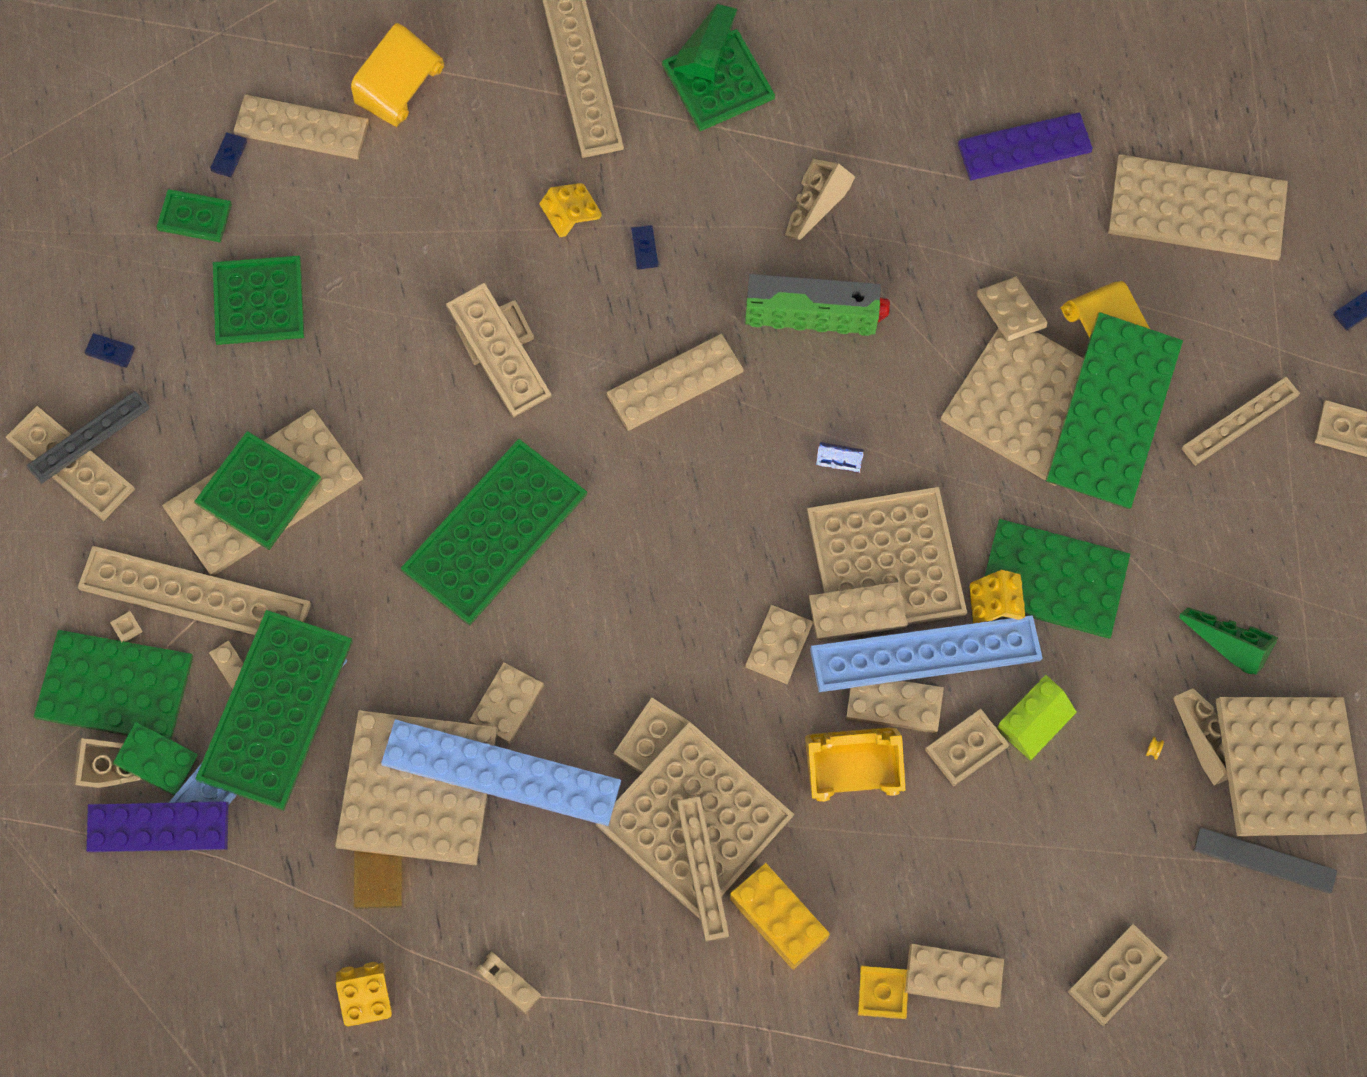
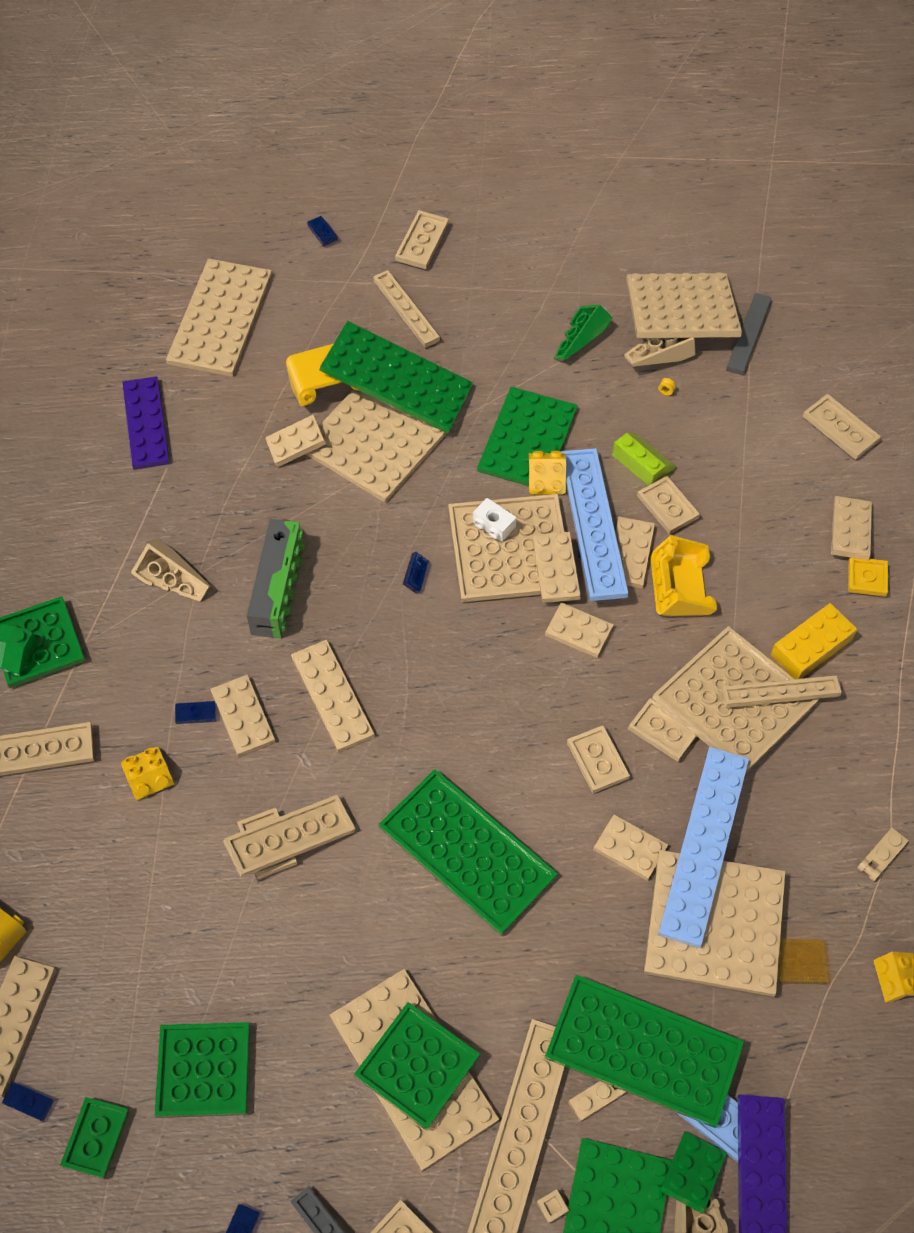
camera: 85 degrees left, 10 degrees down
(610, 665) = (598, 759): none -> tan plate
(644, 294) = (242, 716): none -> tan plate
(909, 548) = (489, 511): none -> white brick

